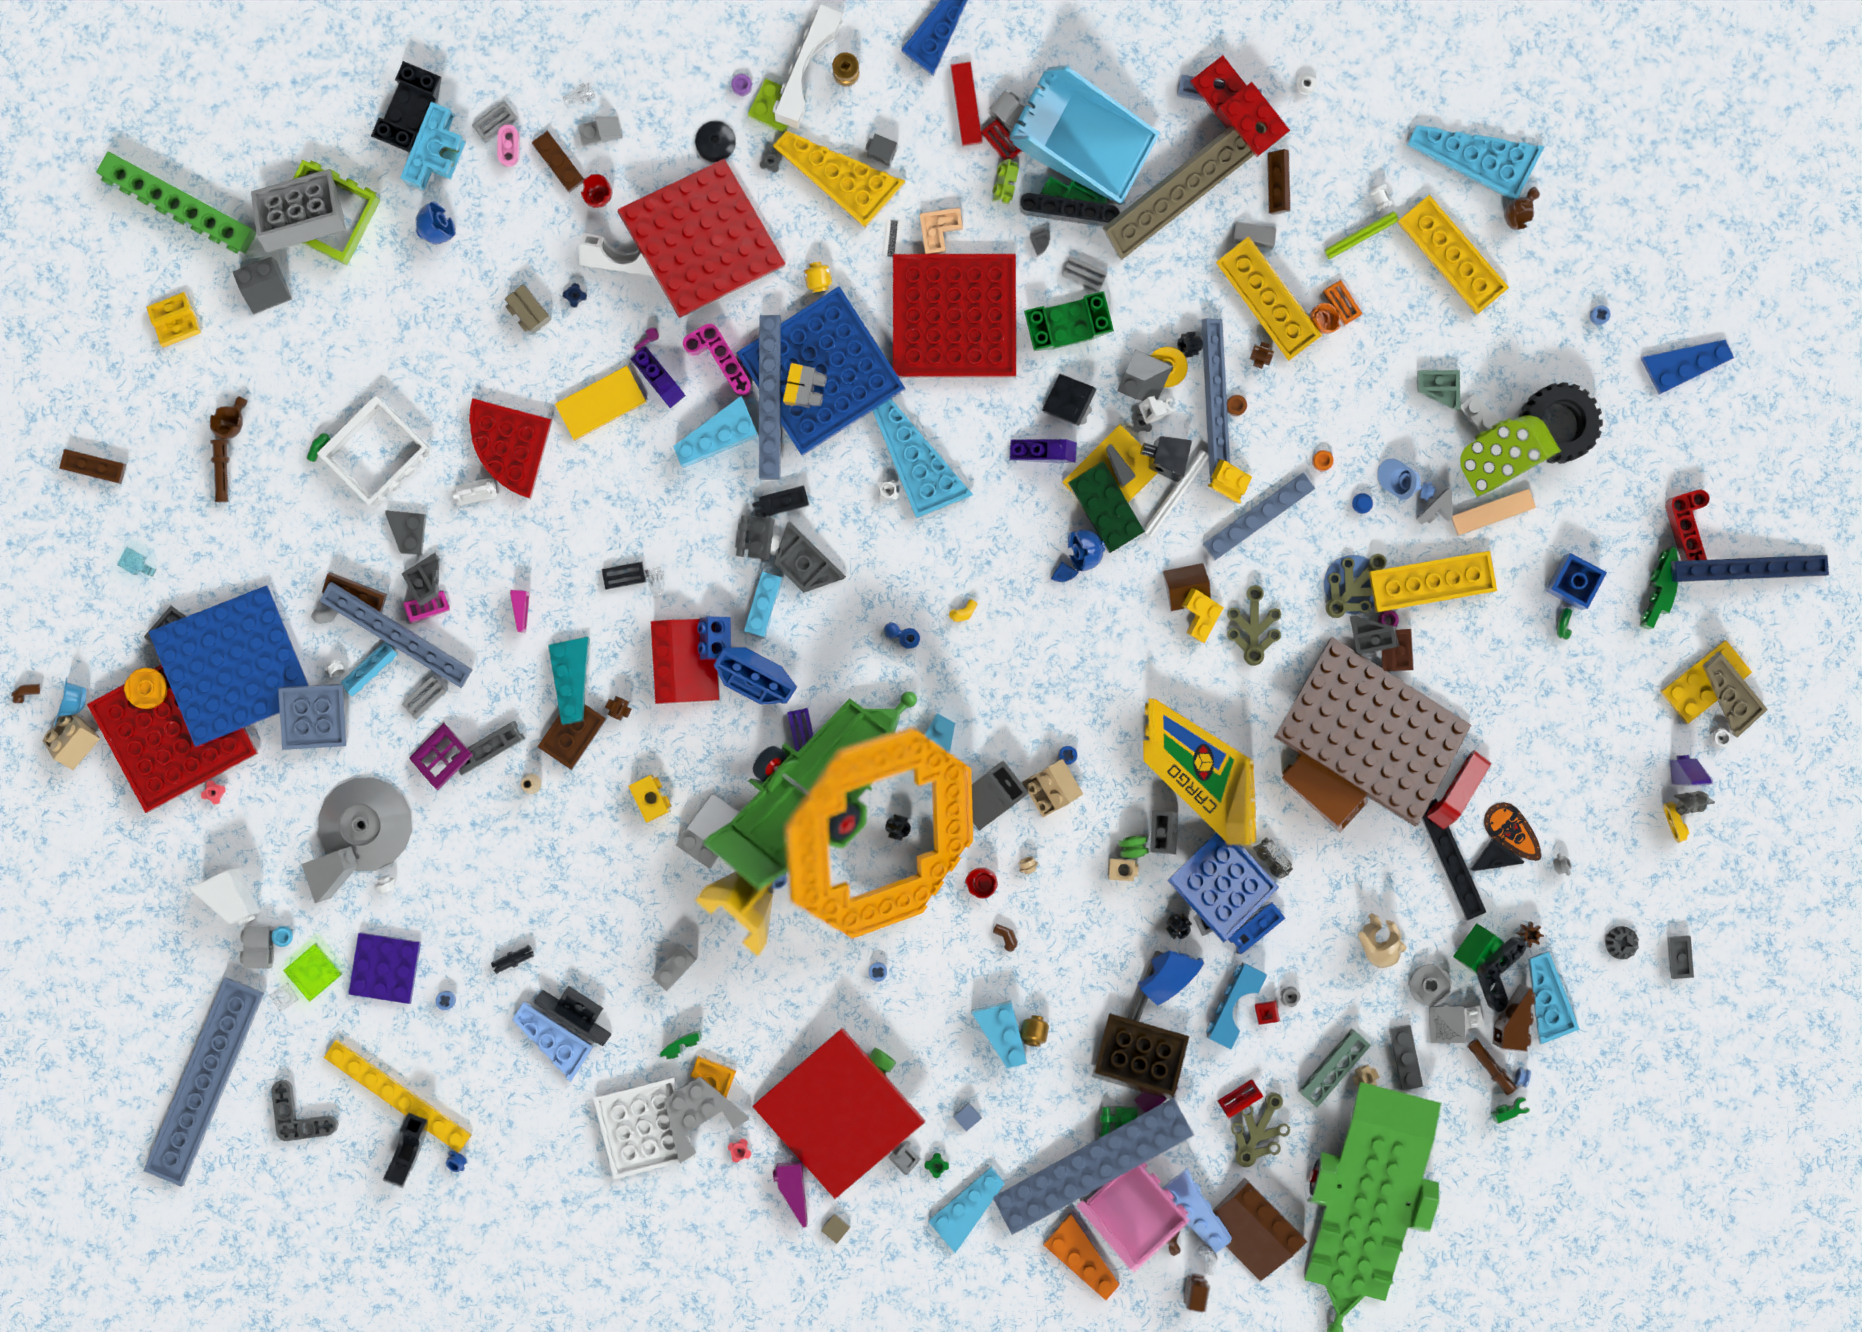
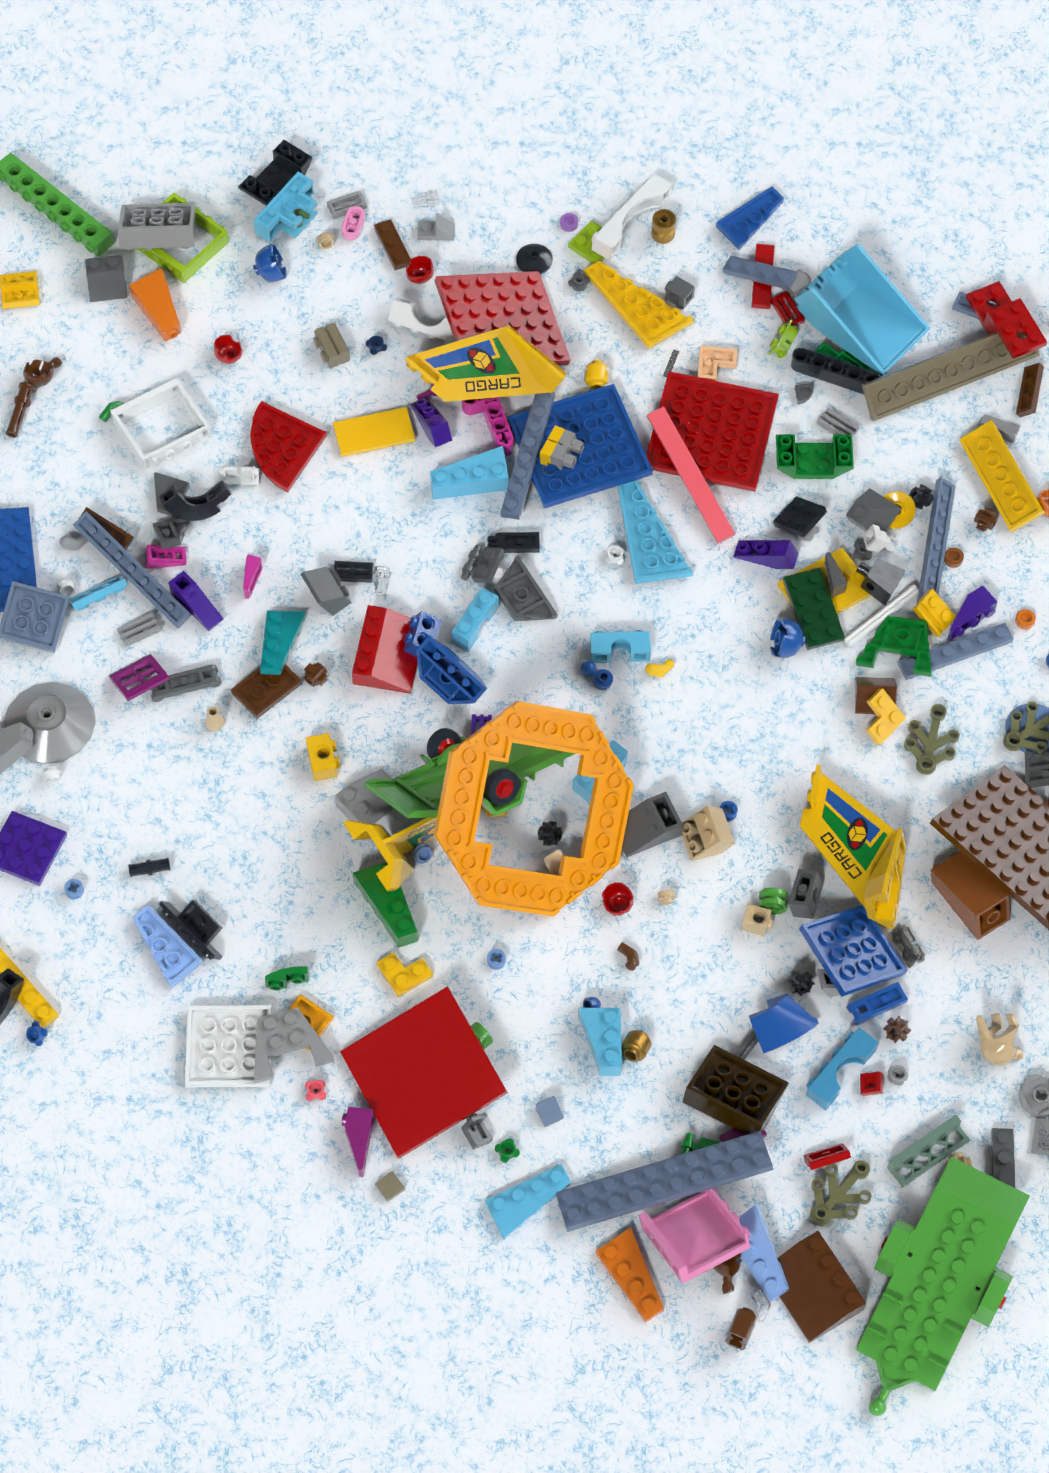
camera: 15 degrees right, 25 degrees down
(324, 299) = (155, 301): none -> orange slope
(418, 343) = (227, 349): none -> red hair
(439, 546) = (197, 507): none -> black arch
(472, 655) = (190, 595): none -> dark purple slope
(484, 175) = (325, 240): none -> tan plate
(602, 611) = (327, 589): none -> slope
(674, 968) = (301, 907): light grey brick -> none
(705, 308) = (487, 367): none -> yellow piece
(773, 956) = (387, 905): none -> green wedge
(791, 1014) = (403, 979): none -> yellow plate
(909, 856) = (552, 862): none -> tan slope
(935, 591) = (636, 643): none -> medium azure arch
(944, 378) = (690, 475): none -> coral tile
(963, 104) = (760, 272): none -> sand blue plate
(982, 998) = (591, 1002): none -> blue hinge
(1064, 573) = (761, 658): blue tile -> none
(1202, 517) = (900, 637): none -> green wing
(1267, 466) = (974, 609): none -> dark purple slope
(1281, 952) = (897, 1029): none -> reddish brown gear

